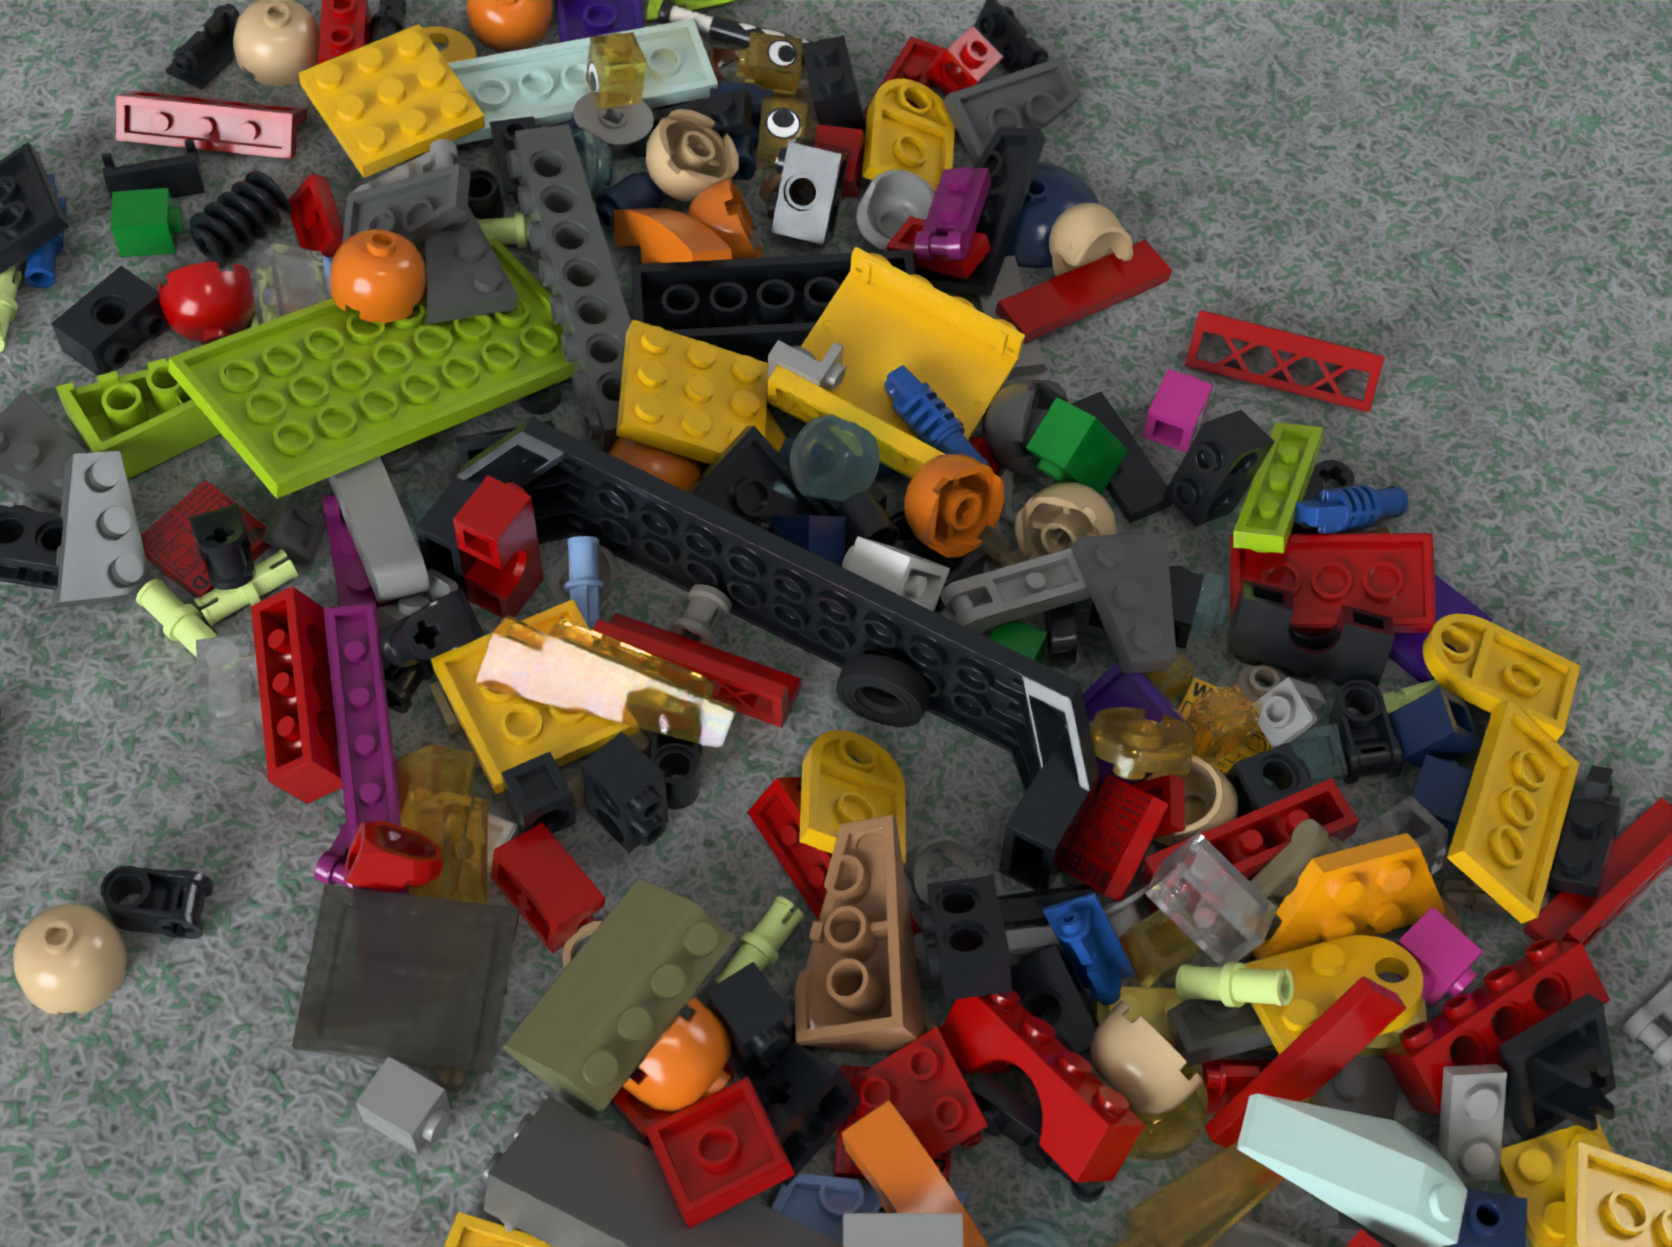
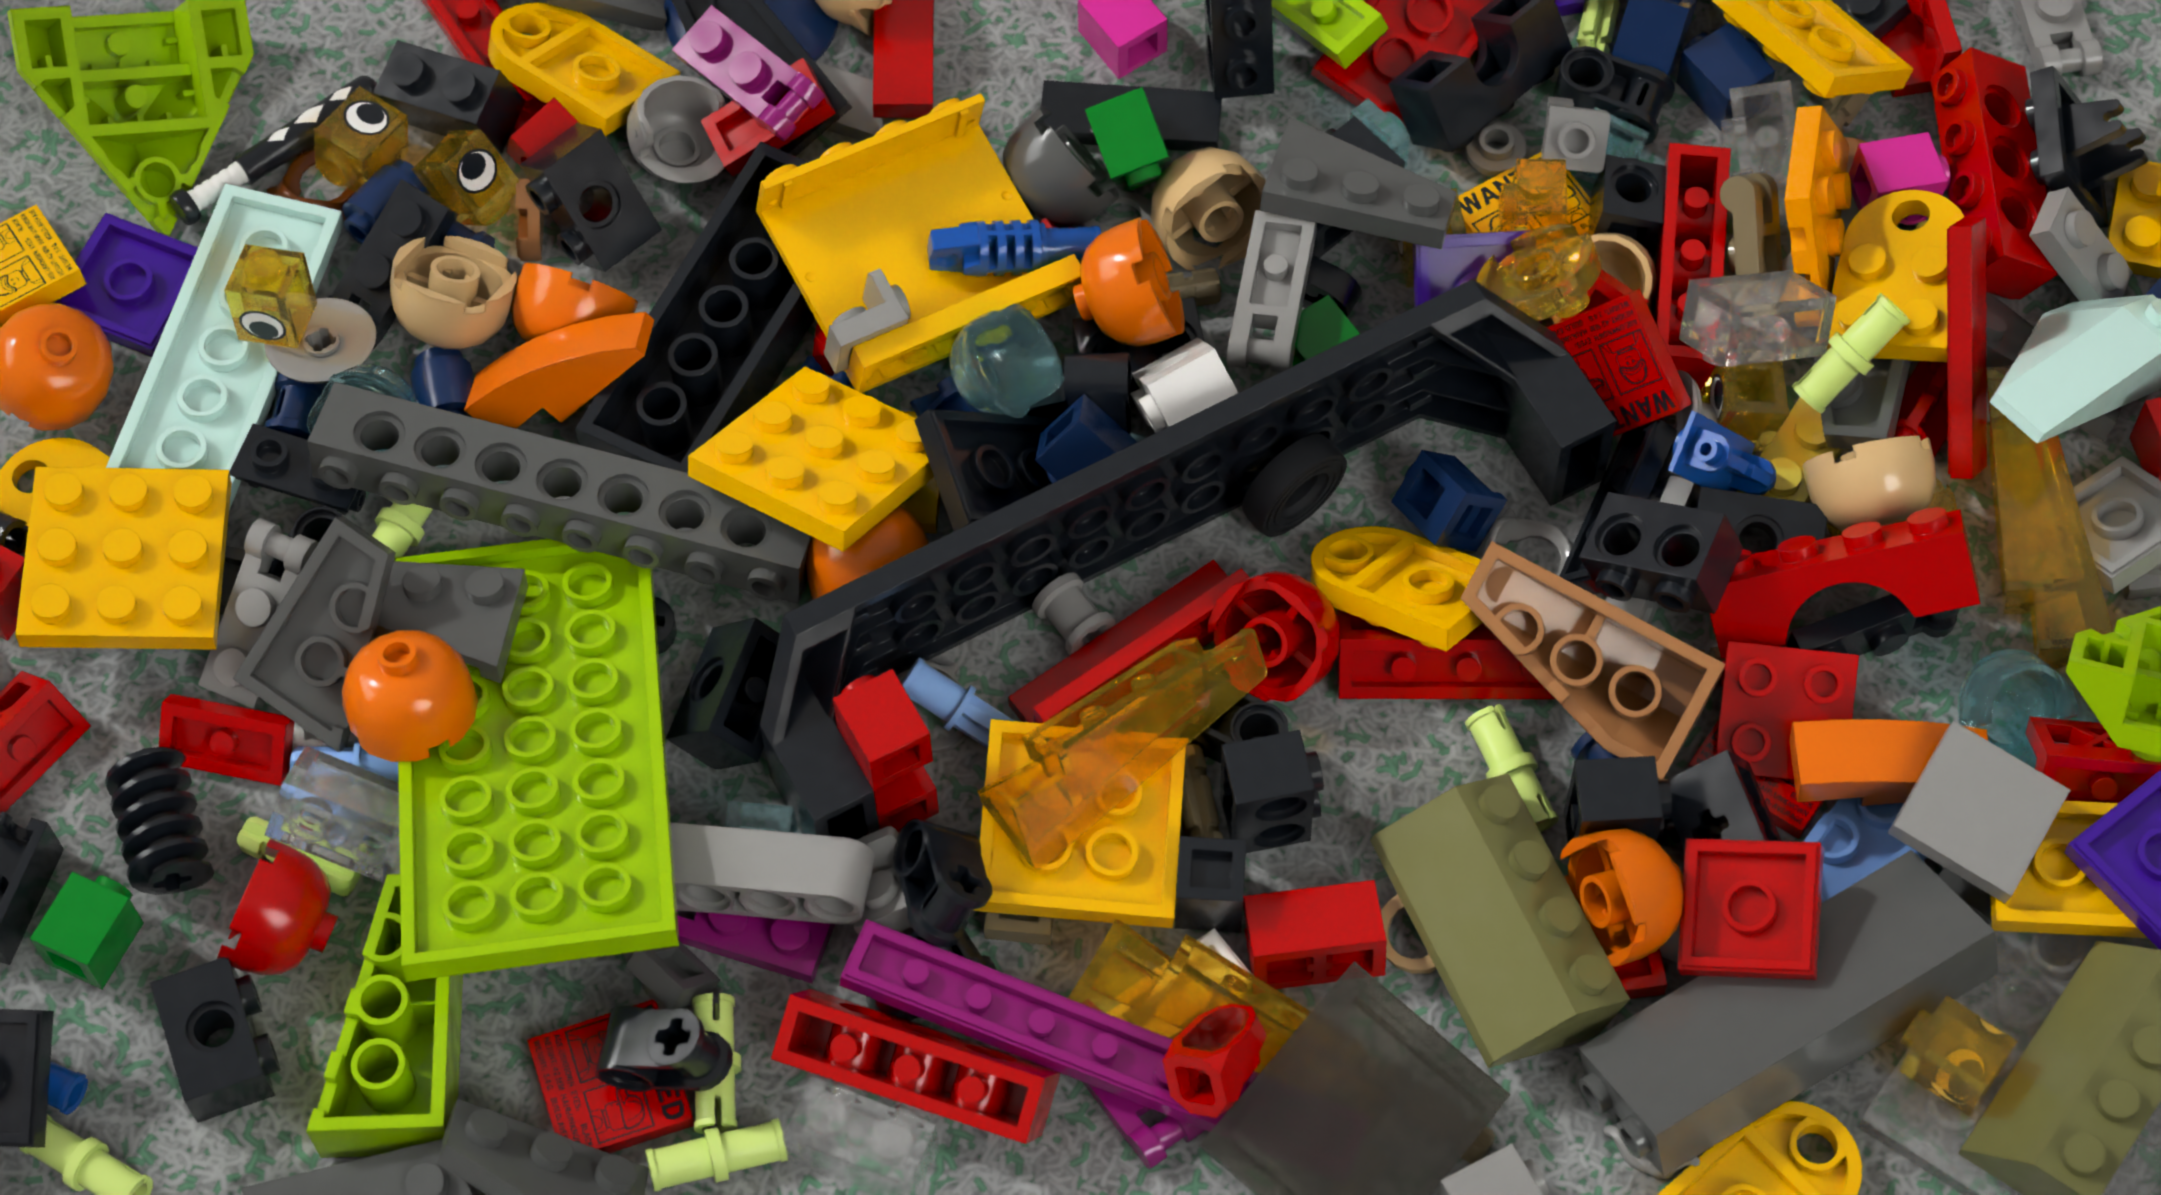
camera: 55 degrees left, 5 degrees up
(761, 741) = (1293, 627): none -> red cylinder
(939, 794) = (1447, 501): none -> dark blue brick

